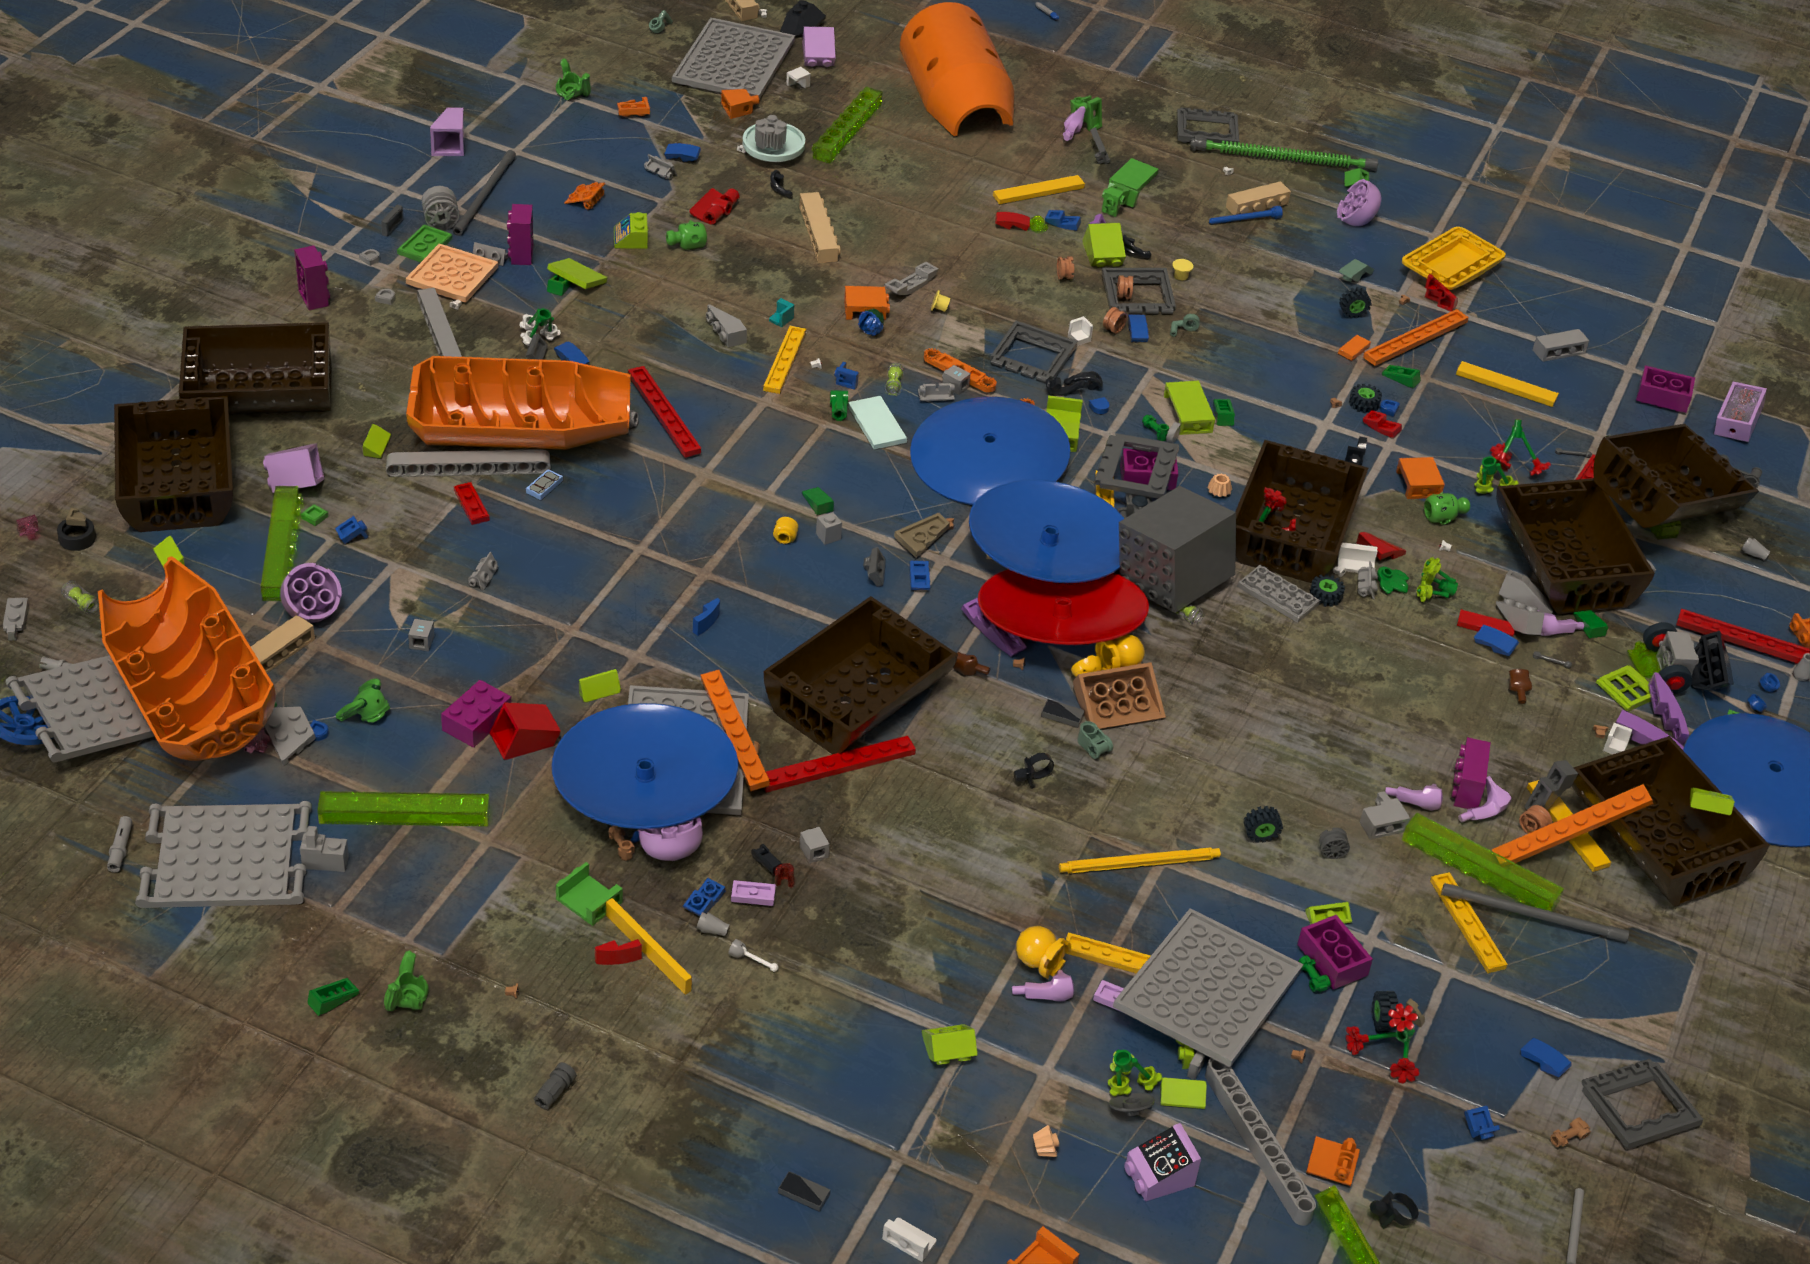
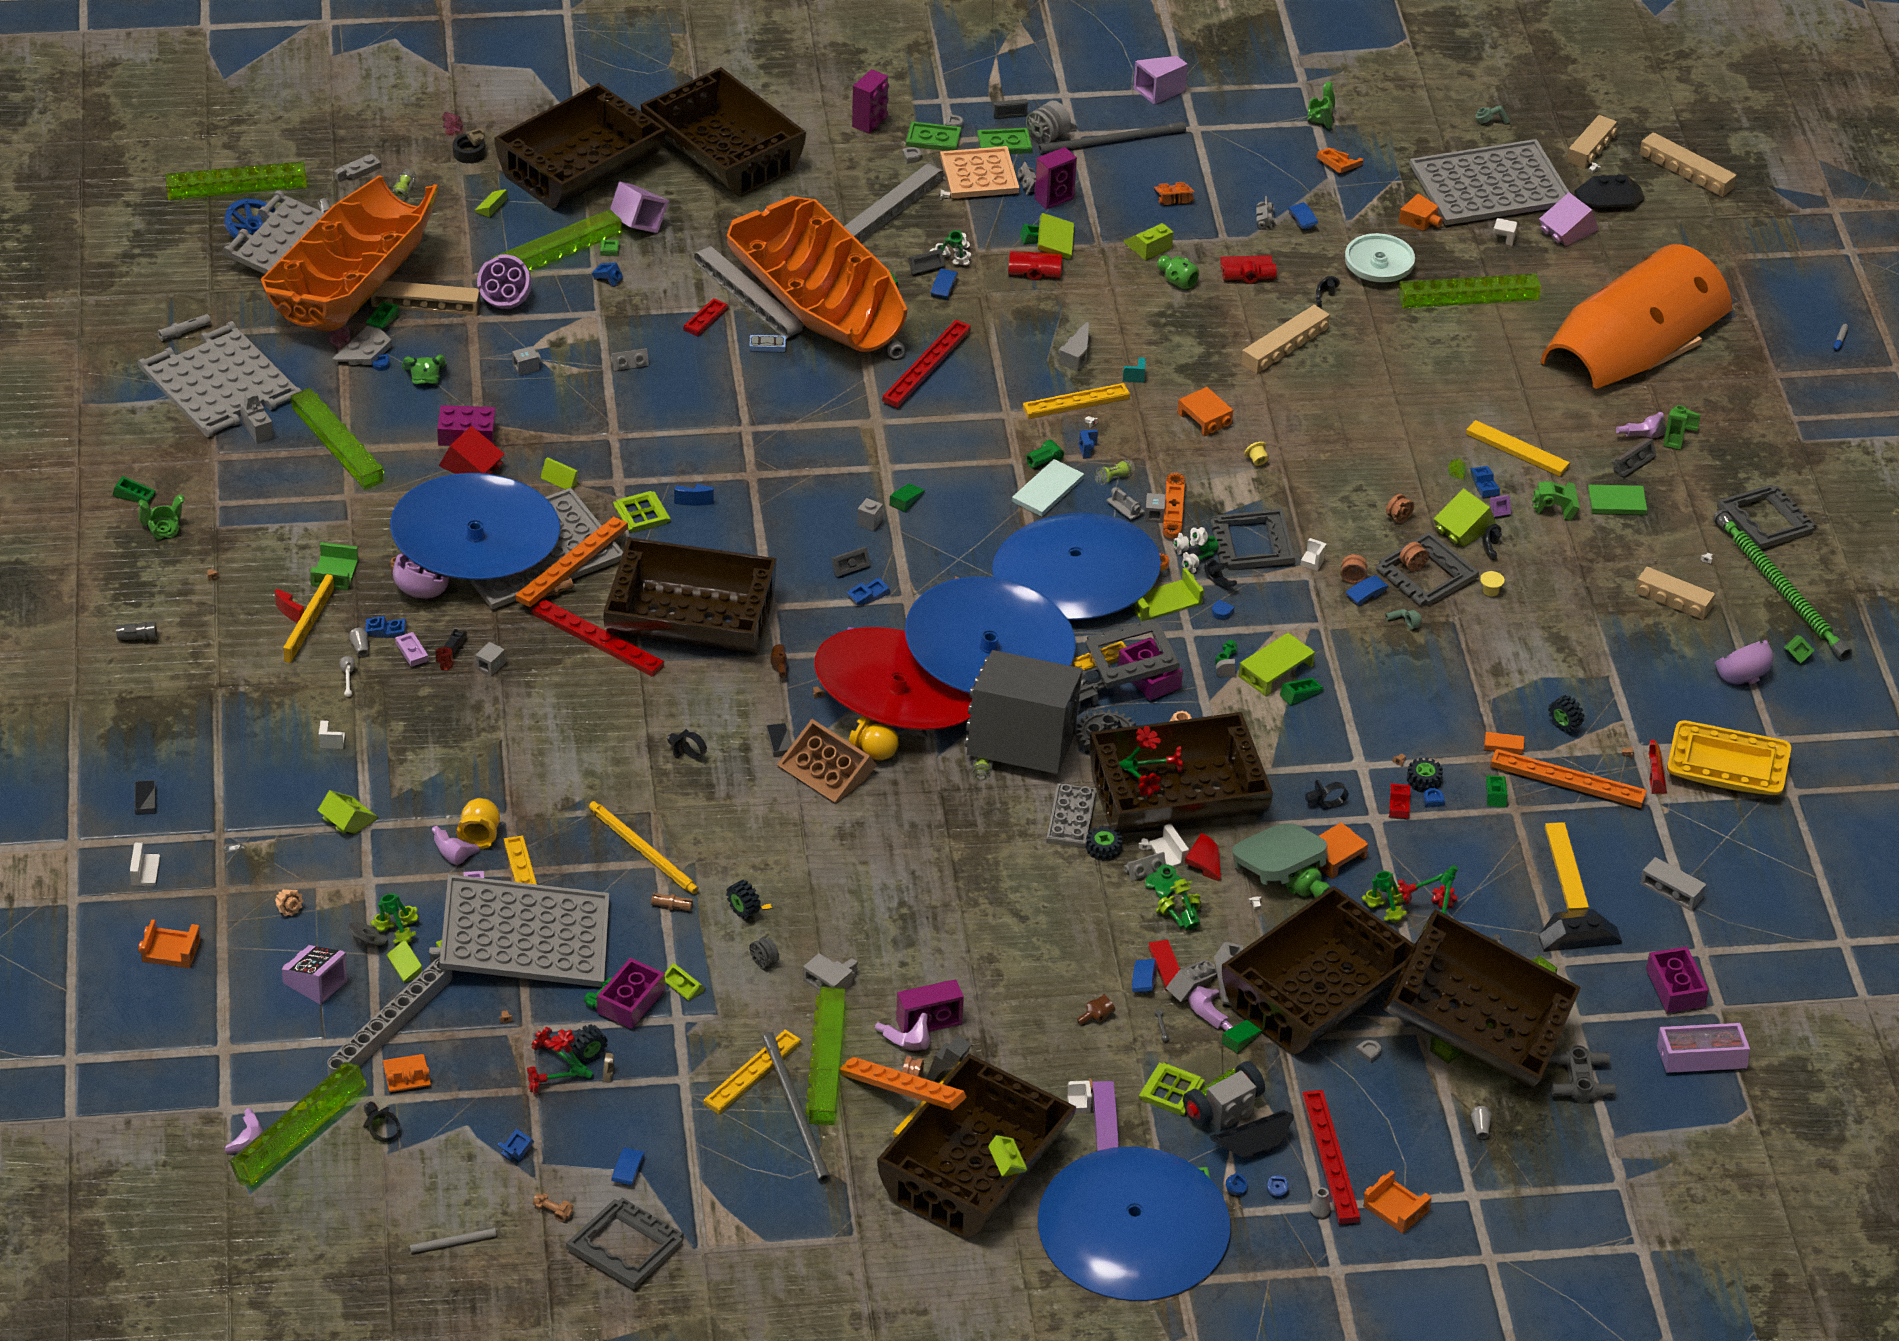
camera: 60 degrees right, 0 degrees up
(375, 275) = (933, 136): none -> bright green tile
(376, 442) = (717, 235): lime slope -> none
(600, 298) = (1035, 264): none -> red panel
(695, 647) = (656, 506): none -> lime piece
(770, 133) = (1373, 245): light grey brick -> none
(785, 530) = (845, 493): yellow head -> none
(829, 1007) = (328, 739): none -> white panel
(871, 322) = (1177, 424): blue piece -> none
(914, 282) = (1271, 428): light grey slope -> none
(922, 534) = (921, 570): dark tan wing -> none
(1007, 219) = (1443, 449): red slope -> none
(1023, 375) = (1199, 537): none -> white plant
(1089, 664) = (840, 726): yellow helmet -> none
(1093, 378) = (1251, 588): black piece -> none
(1093, 739) = (758, 766): sand green piece -> none
(1224, 874) = (672, 902): none -> medium nougat pin
(1275, 212) = (1669, 613): blue piece -> none
(1355, 270) = (1626, 697): sand green slope -> none
(1415, 502) = (1280, 852): none -> sand green tile
(1428, 799) = (879, 993): lavender animal -> none
(1578, 410) = (1578, 930): none -> black wedge
(1666, 705) = (1159, 1115): medium lavender slope -> none

